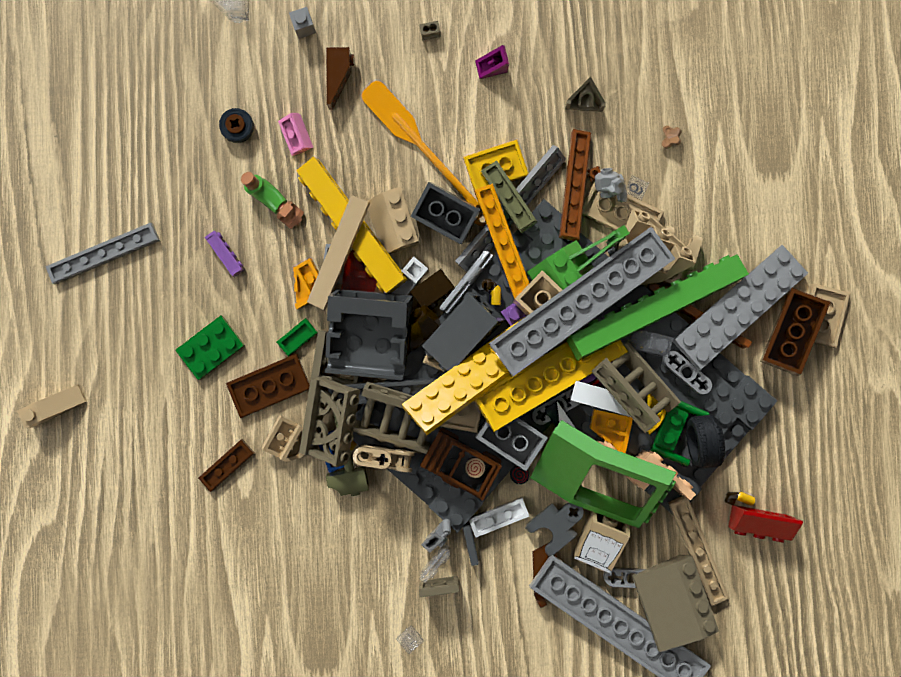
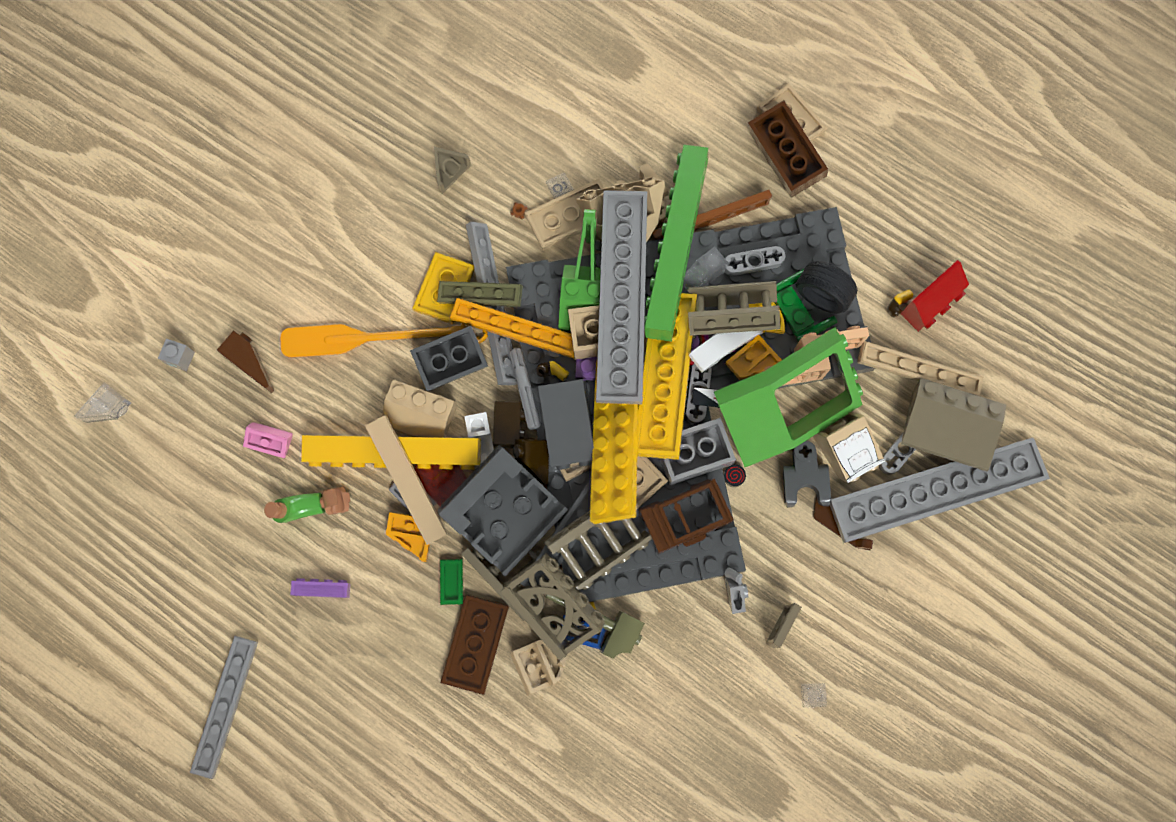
camera: 55 degrees left, 10 degrees down
(210, 347) = (395, 672): green plate -> none
(226, 465) = (517, 744): reddish brown tile -> none
(241, 131) = (222, 489): black wheel -> none
(394, 460) = (634, 571): tan piece -> none
(430, 34) = (282, 255): dark tan piece -> none
(431, 568) = (757, 606): clear plate -> none
(470, 544) = (766, 568): dark grey tile -> none
(475, 467) = (698, 507): tan tile -> none
(493, 63) = (353, 220): magenta slope -> none
(498, 517) = (760, 523): white plate -> none
(575, 185) = (516, 232): dark orange tile -> none
(611, 184) = (539, 202): light grey head -> none
(672, 136) = (539, 124): medium nougat piece -> none
(740, 307) = (731, 178): light grey plate -> none

